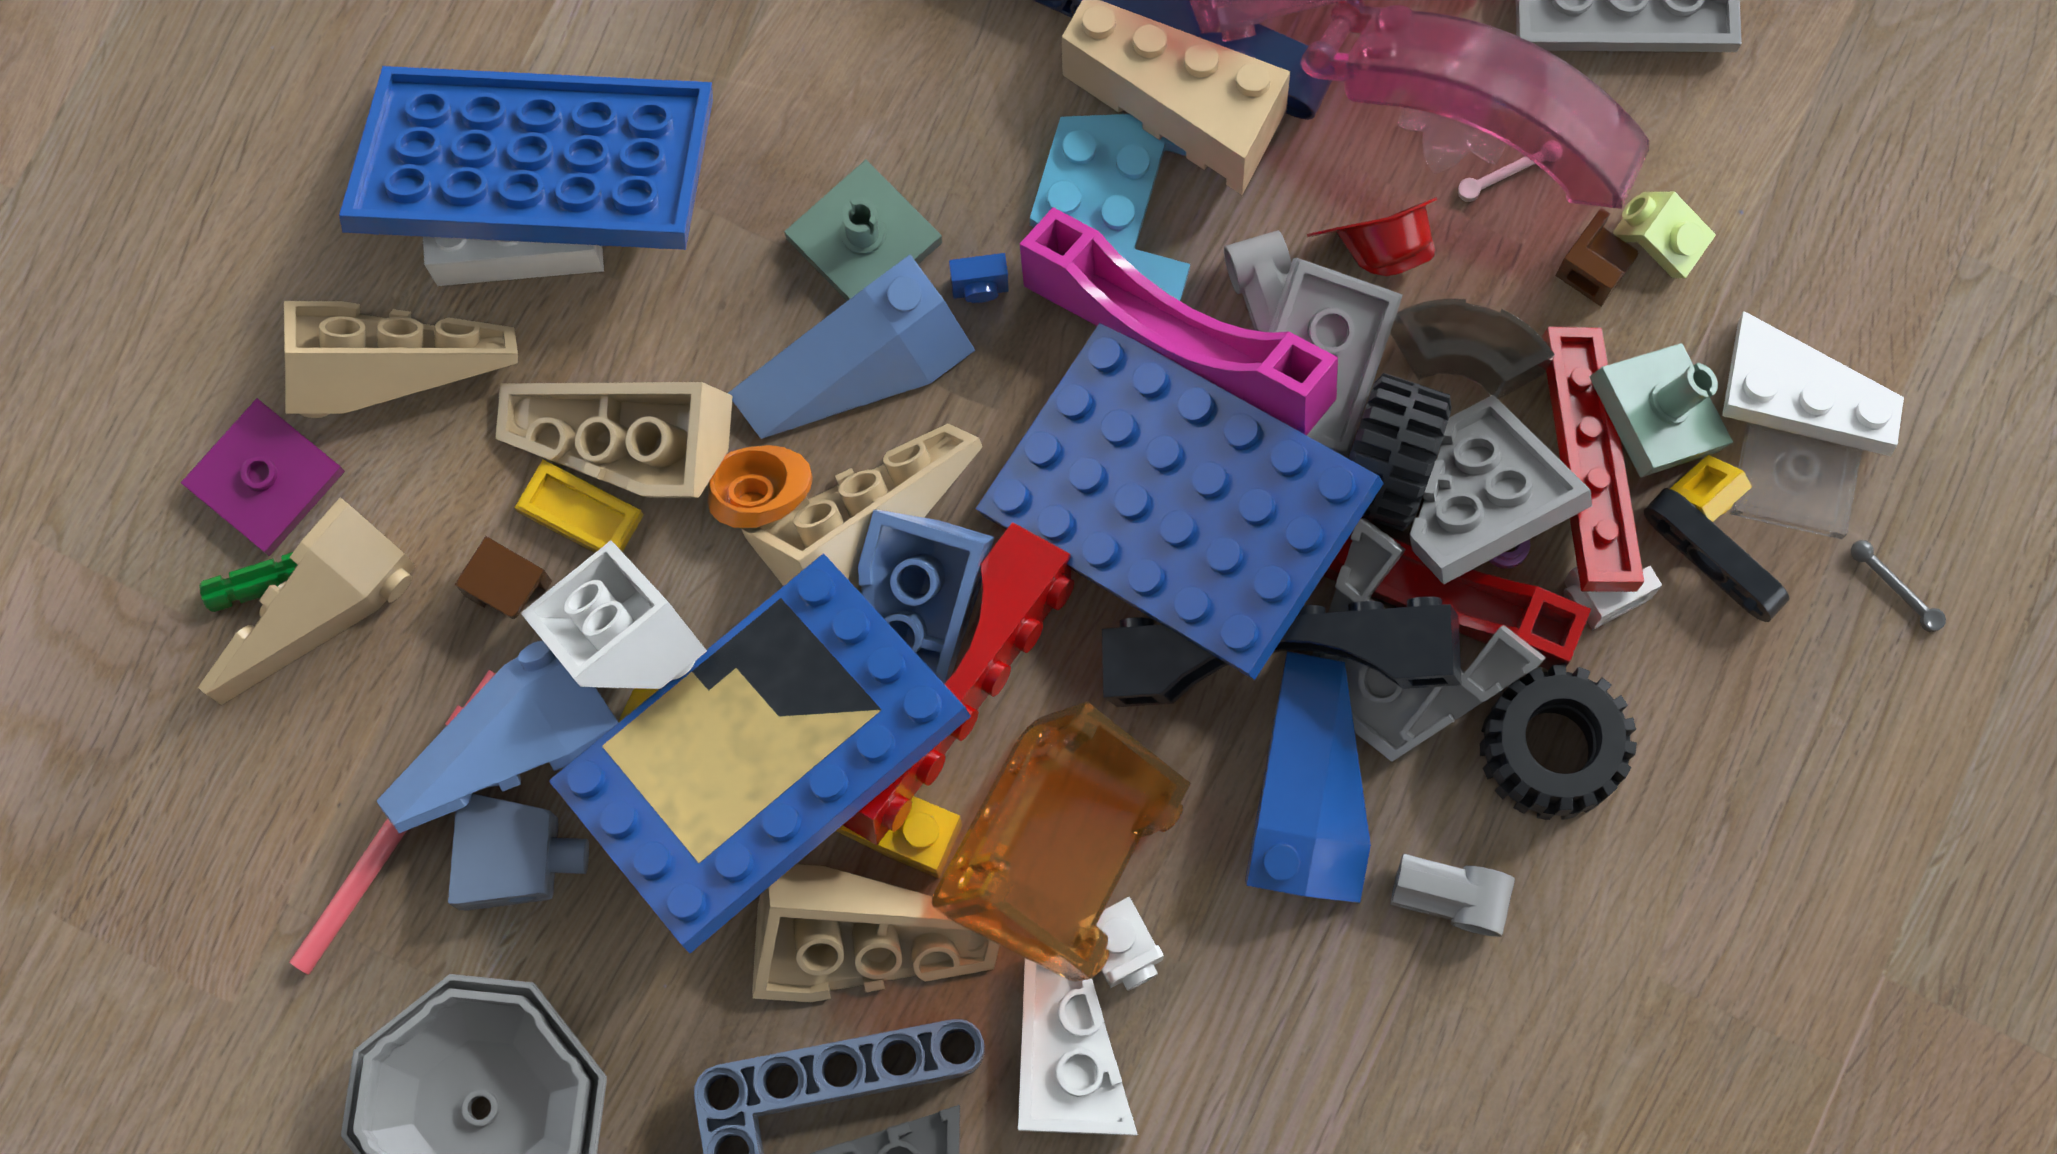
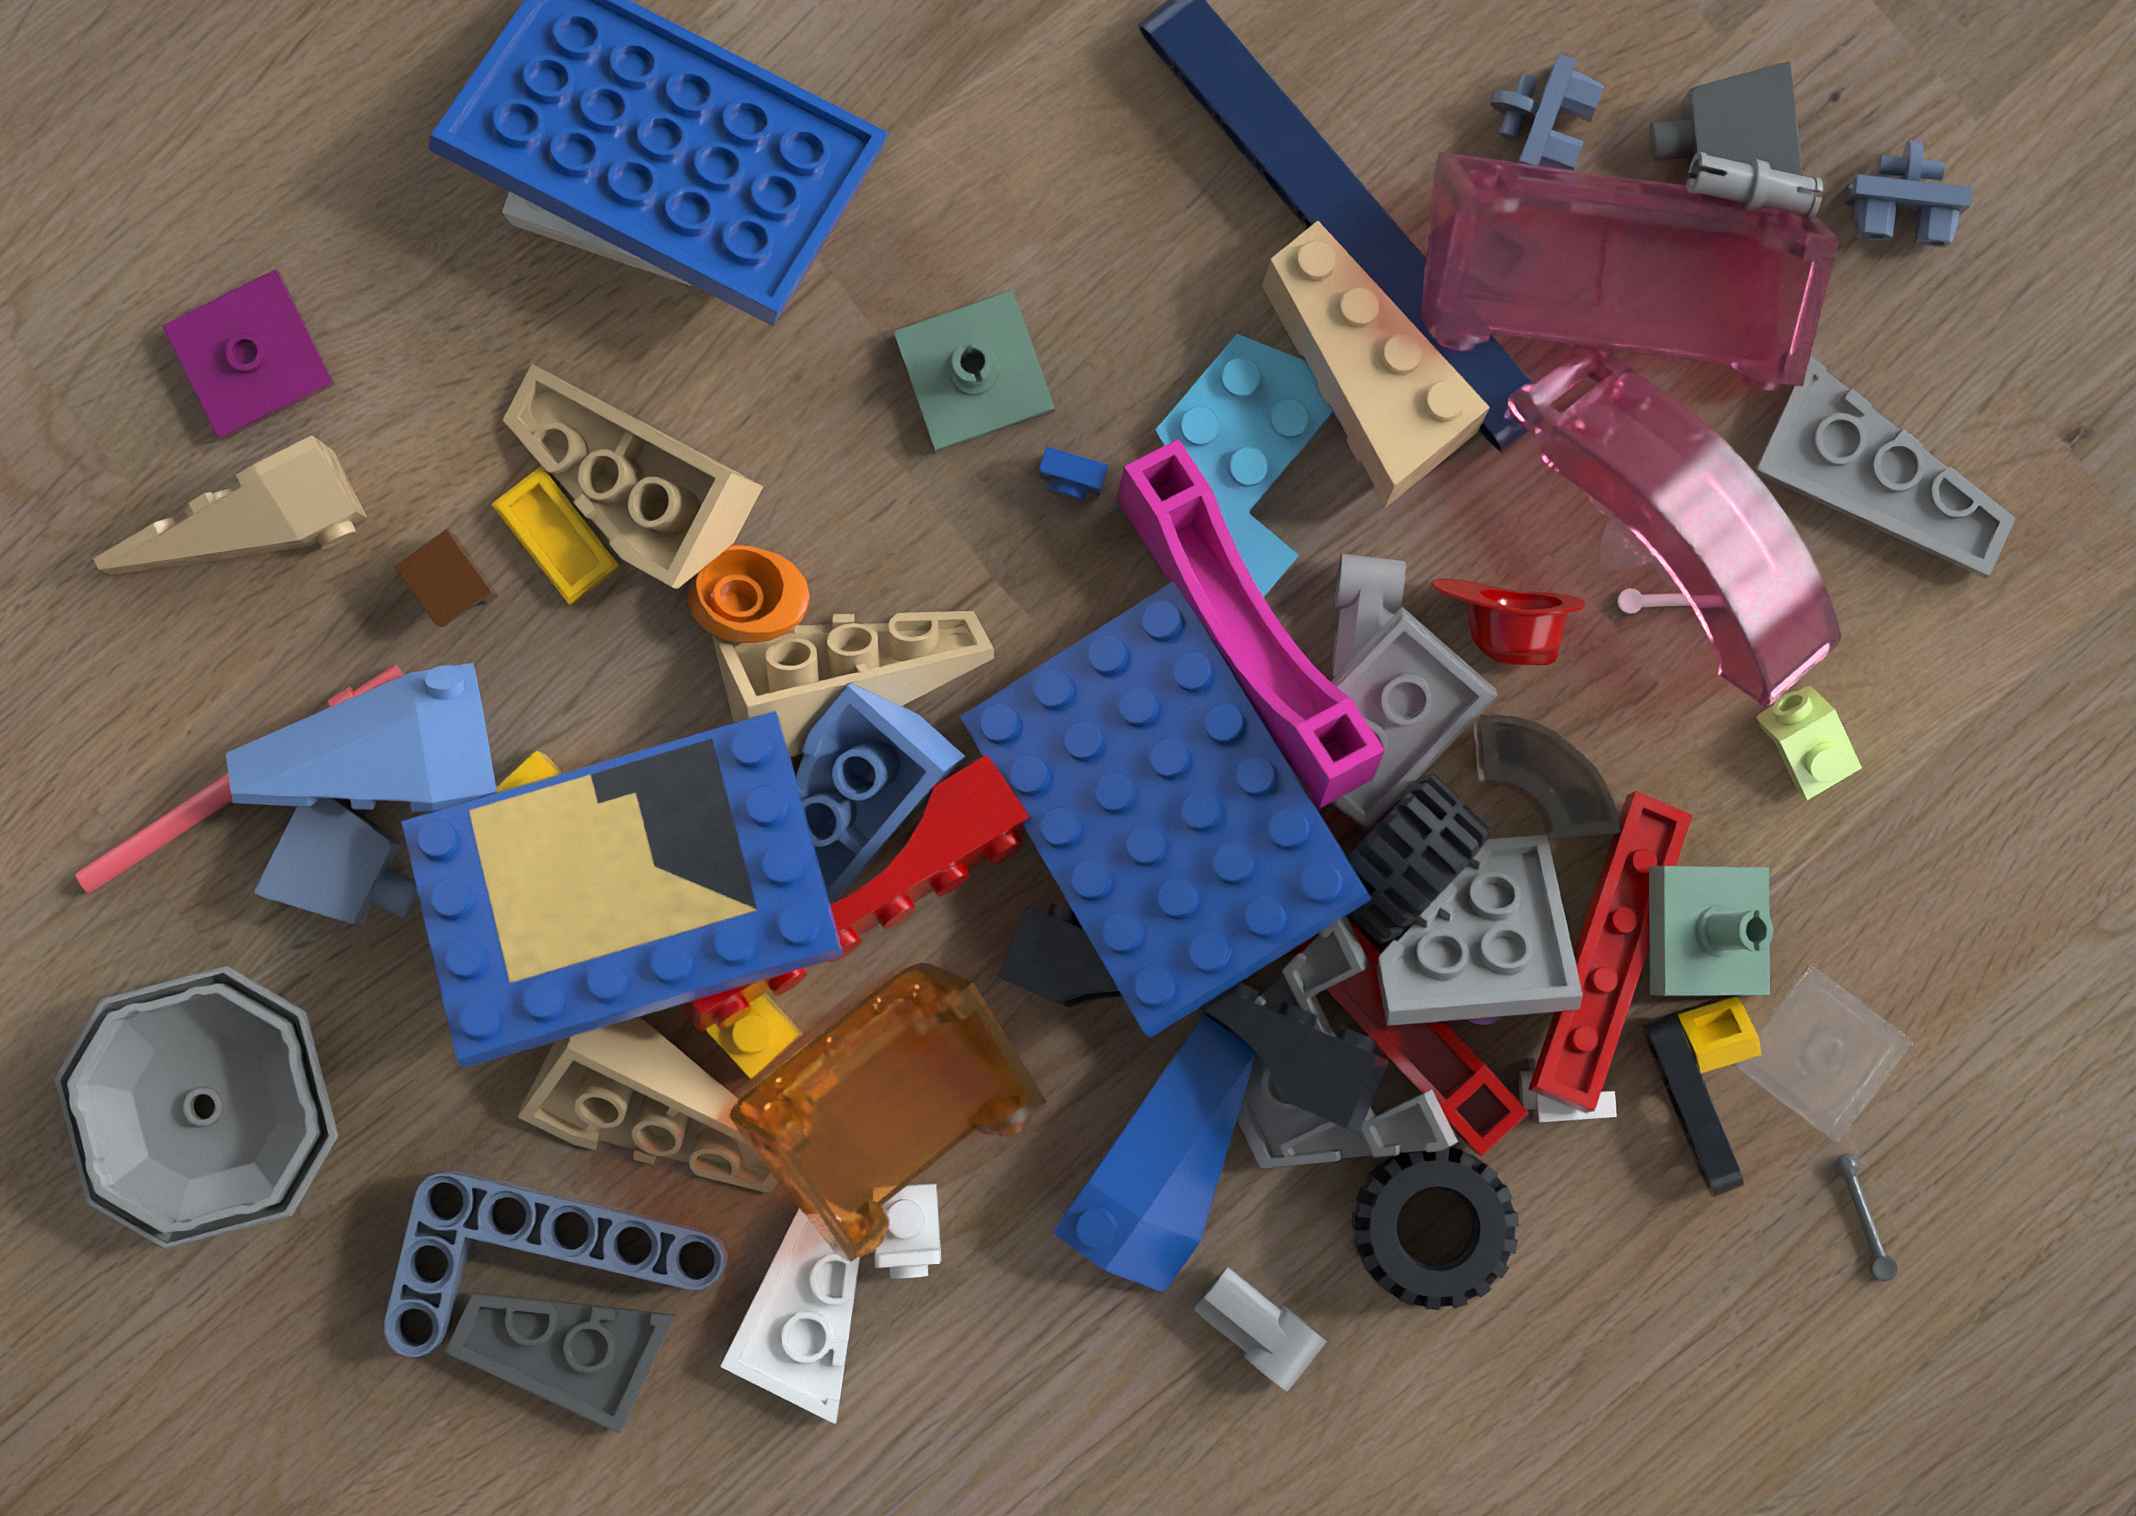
camera: 25 degrees right, 10 degrees up
(245, 583) = (192, 462): green axle -> none
(358, 360) = (403, 278): tan wedge -> none
(613, 626) = (531, 689): white slope -> none
(870, 348) = (921, 499): medium blue wedge -> none
(1597, 261) = (1726, 741): reddish brown panel -> none
(1806, 393) = (1869, 978): white wing -> none

